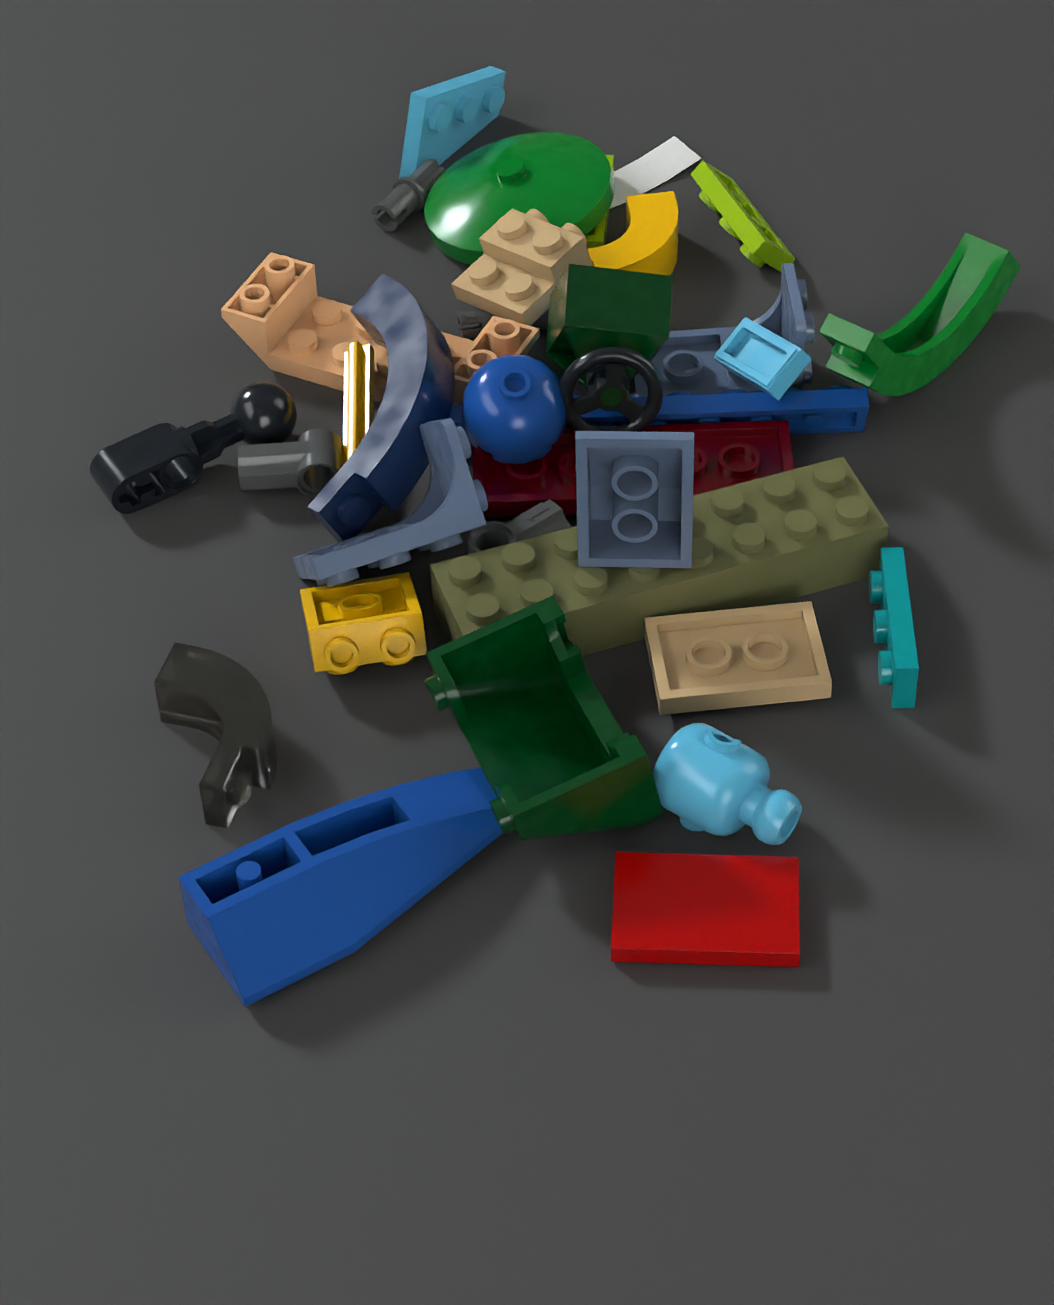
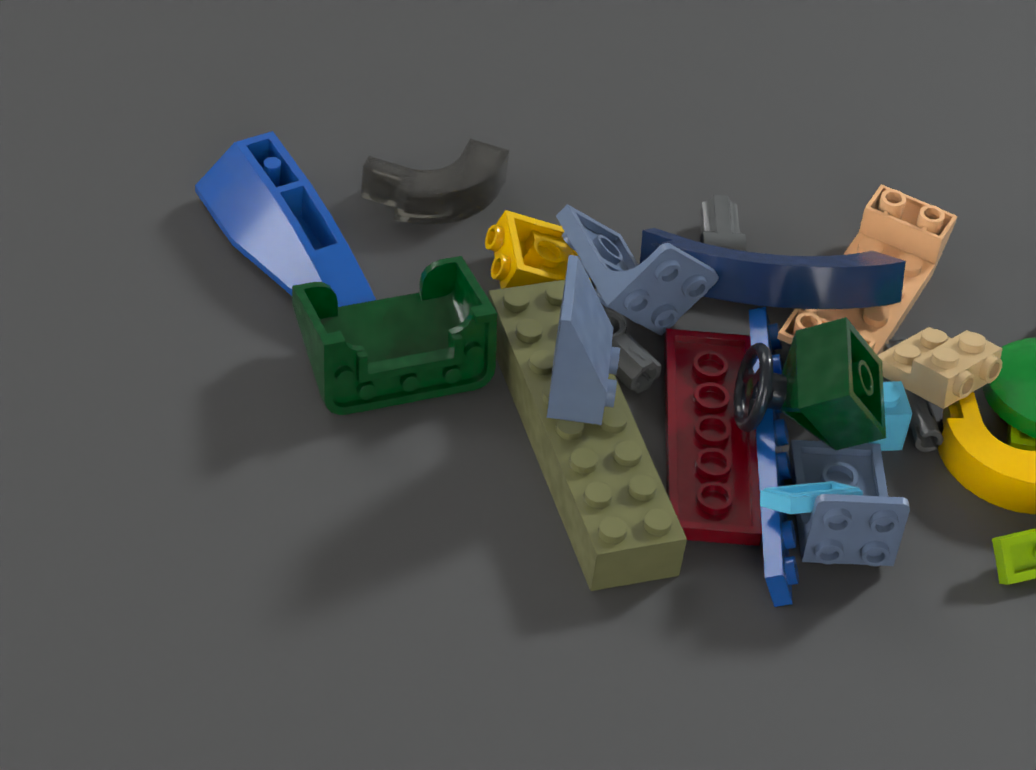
camera: 85 degrees right, 0 degrees up
(172, 458) = (730, 167): black beam -> none
(514, 409) = (742, 323): blue cylinder -> none
(706, 909) = (236, 425): red tile -> none
(722, 786) = (337, 430): medium azure piece -> none
(737, 658) = (484, 470): tan plate -> none
(894, 627) = (506, 569): teal plate -> none
(933, 331) = (860, 638): green arch -> none

